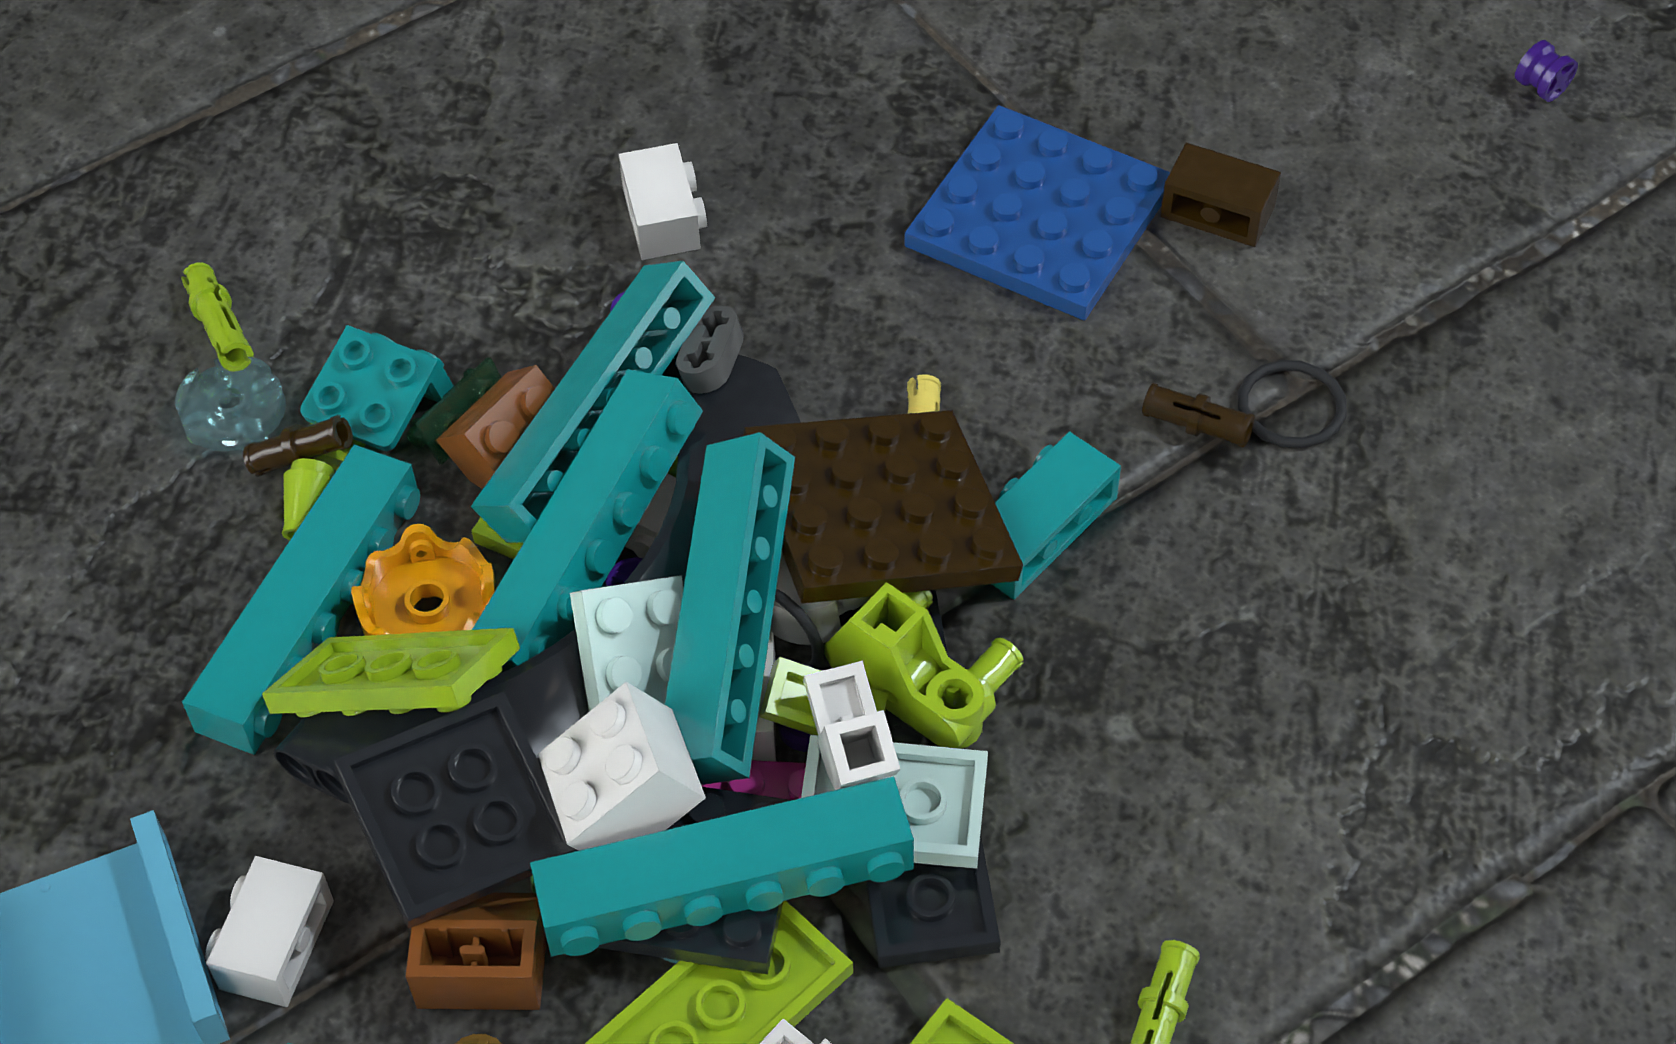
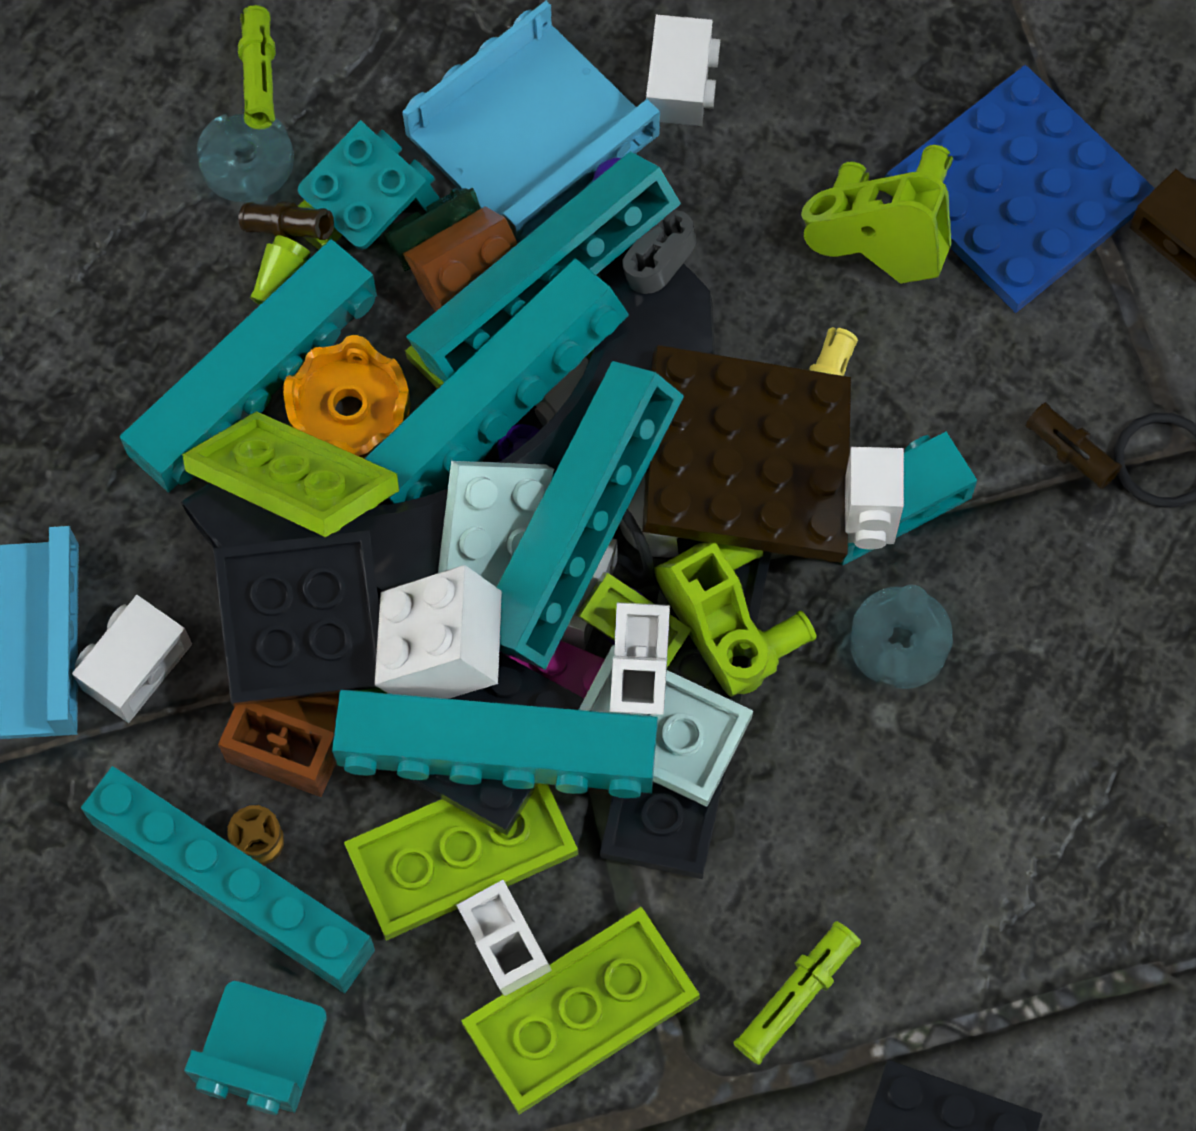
camera: 20 degrees right, 15 degrees up
(515, 288) = (526, 122): none -> medium azure panel
(942, 271) = (900, 237): none -> lime piece
(1029, 494) = (874, 496): none -> white brick
(1110, 616) = (909, 609): none -> clear light blue plate

